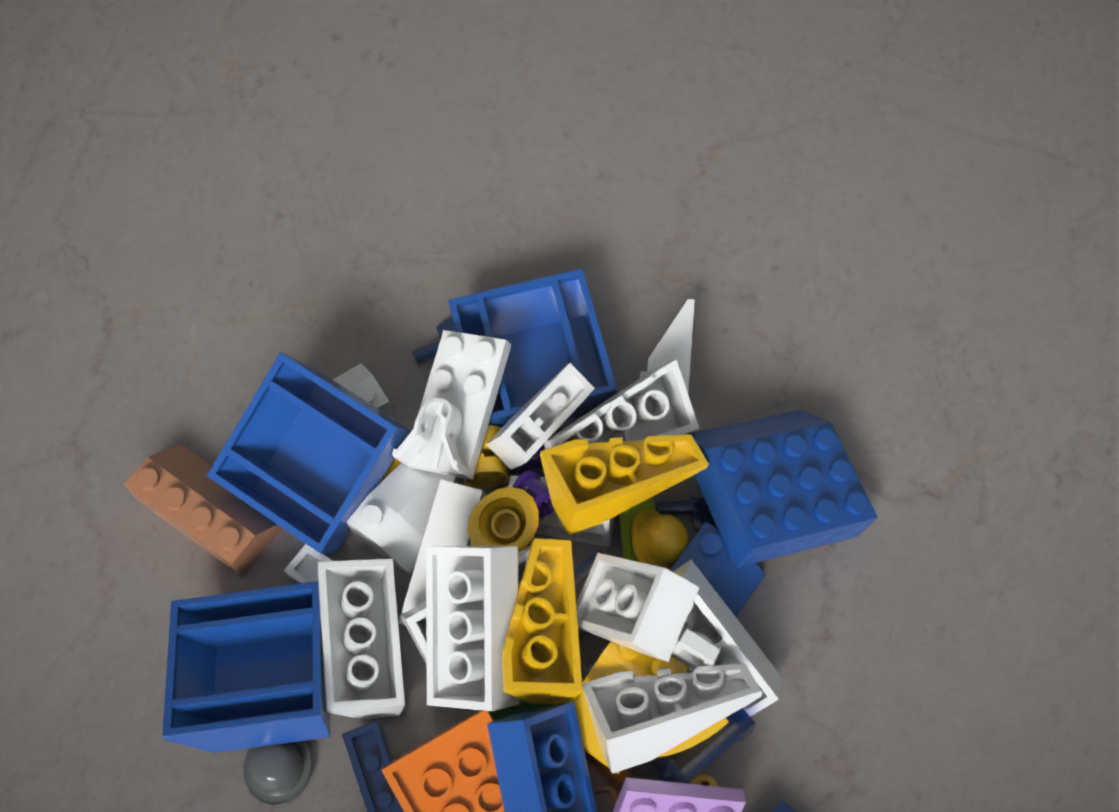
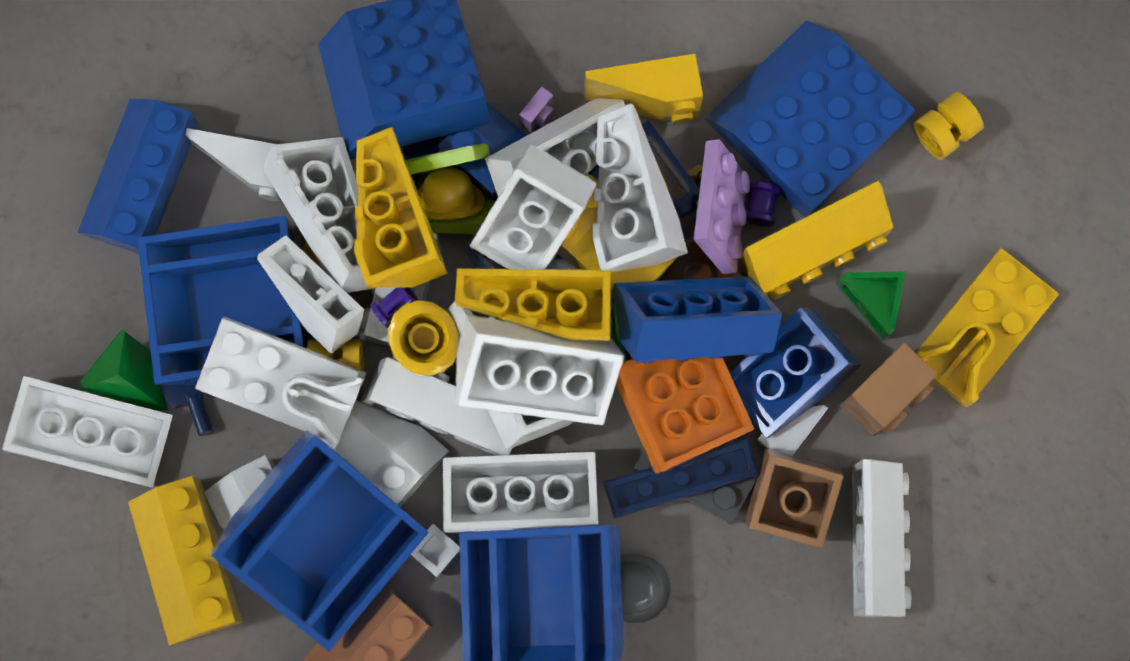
camera: 90 degrees left, 15 degrees up
(325, 343) = (177, 548): none -> yellow slope
(405, 257) = (87, 432): none -> white plate
(459, 276) = (124, 374): none -> green slope
(648, 273) = (138, 174): none -> blue slope
(688, 524) = (447, 158): none -> lime tile
(695, 649) = (581, 158): white plate -> none
(761, 620) = (538, 110): none -> lavender plate
(800, 744) = (657, 88): none -> yellow slope

